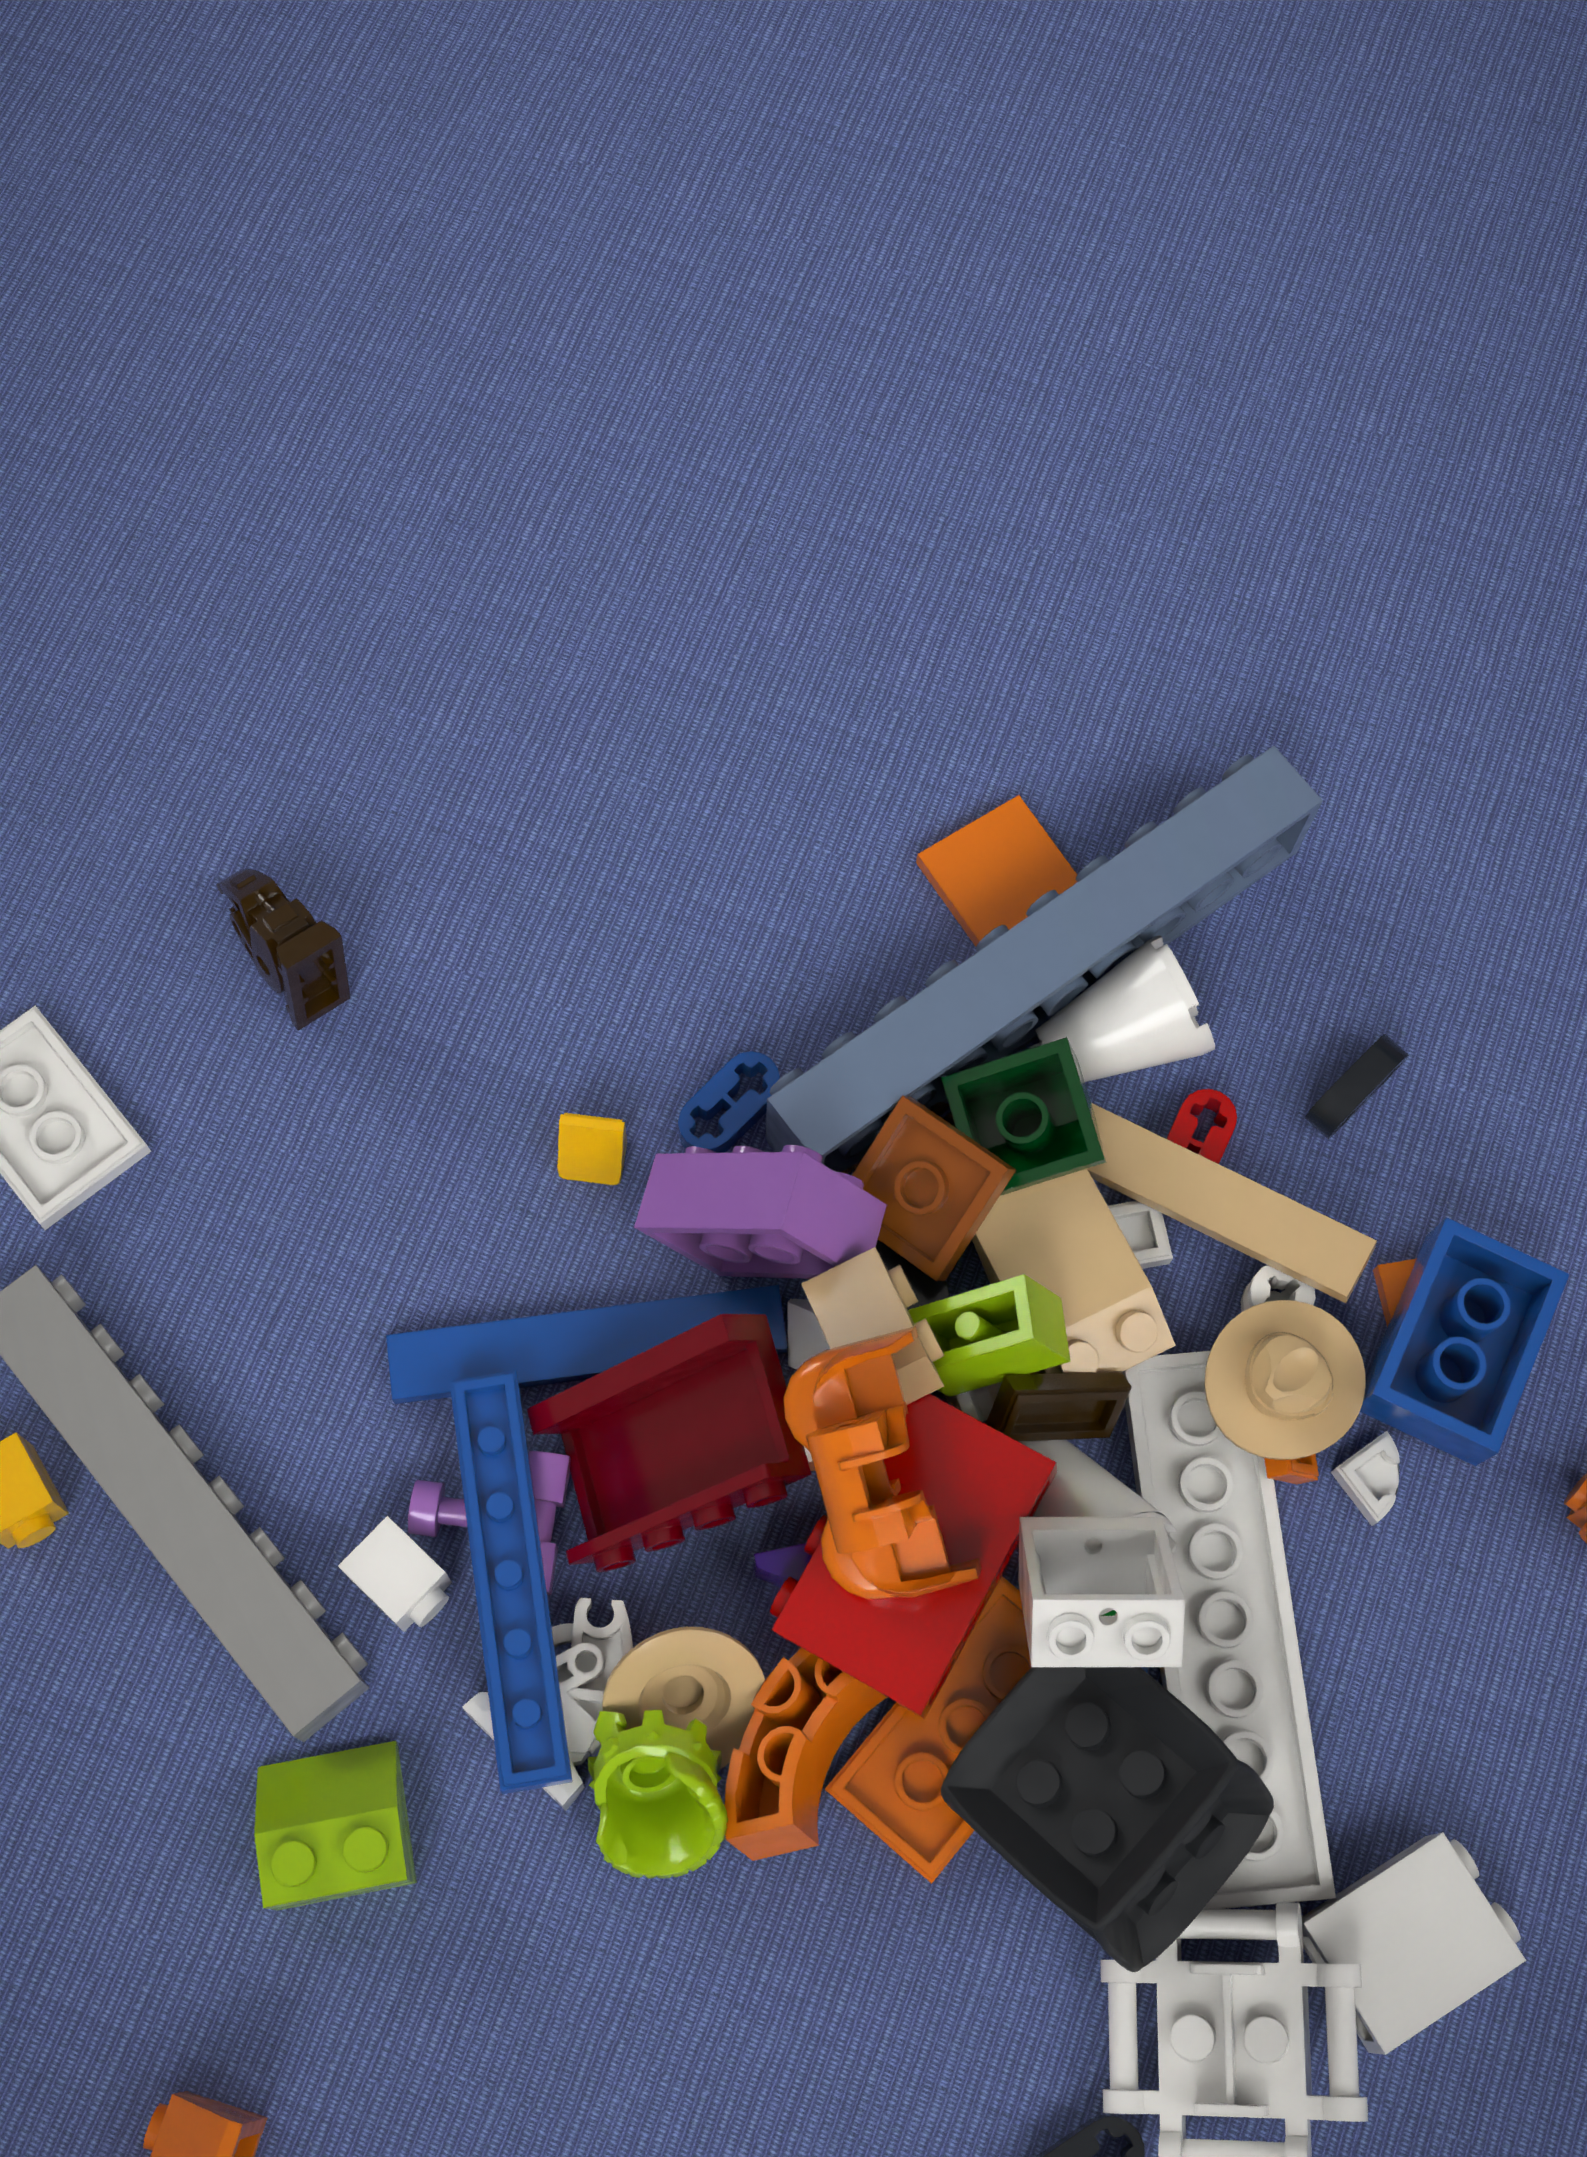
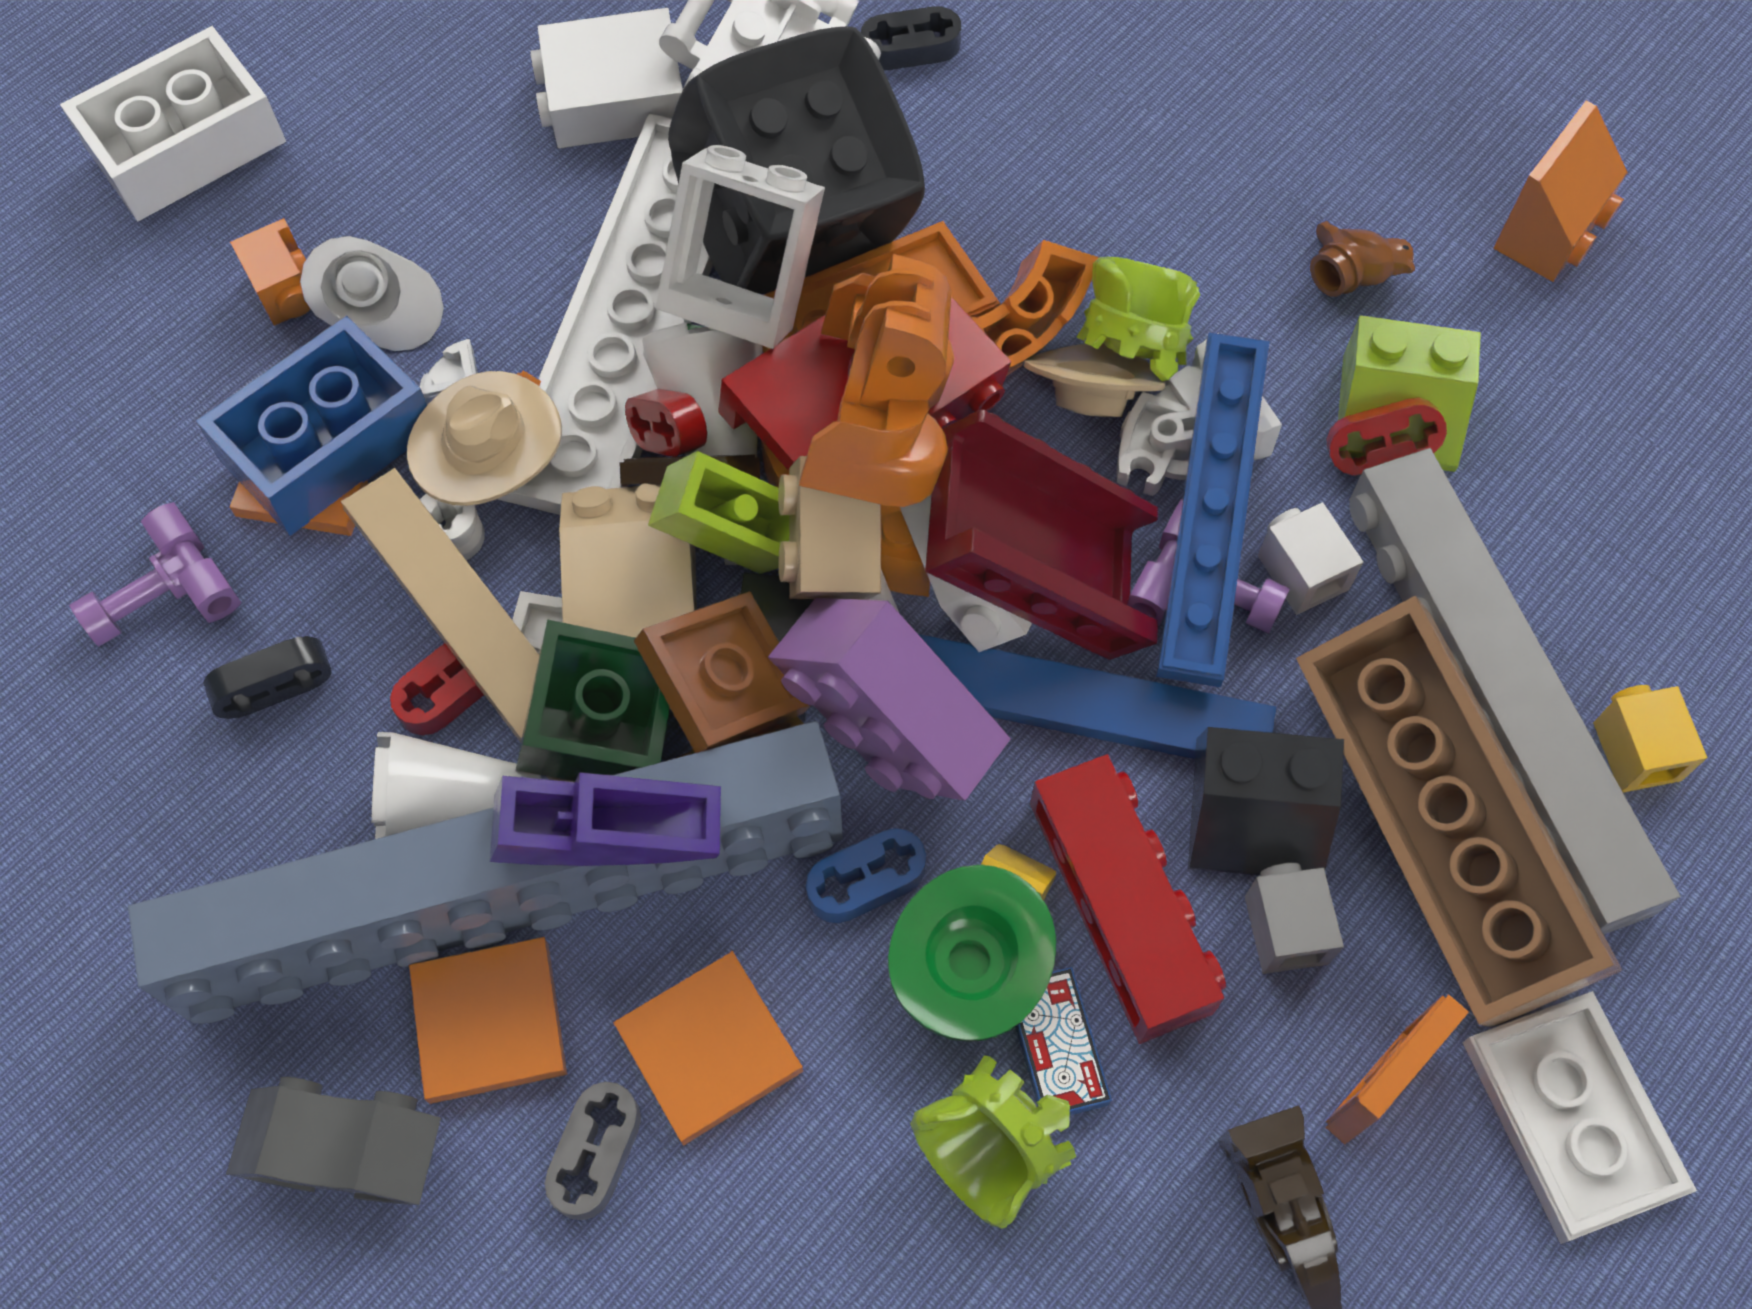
camera: 155 degrees left, 5 degrees down
(198, 1325) = (1456, 816): none -> medium nougat brick
(208, 1067) = (1395, 1069): none -> orange tile
(328, 1189) = (1293, 918): none -> light grey brick
(344, 1753) = (1382, 422): none -> red beam
(381, 1292) = (1263, 800): none -> black slope
(427, 2008) = (1357, 259): none -> dark orange animal
(487, 1157) = (1126, 898): none -> red brick
(510, 1020) = (1062, 1047): none -> tile
(536, 906) = (993, 1142): none -> lime hair
(607, 1046) = (972, 953): none -> green hat
(807, 917) = (708, 1047): none -> orange tile
(877, 808) = (578, 1143): none -> flat silver beam
(957, 986) = (604, 821): none -> dark purple slope
(1069, 733) = (335, 1143): none -> dark grey brick
(1107, 1450) = (666, 422): none -> red beam
(1509, 1157) = (177, 569): none -> medium lavender bar
(1512, 1527) = (376, 289): none -> white piece

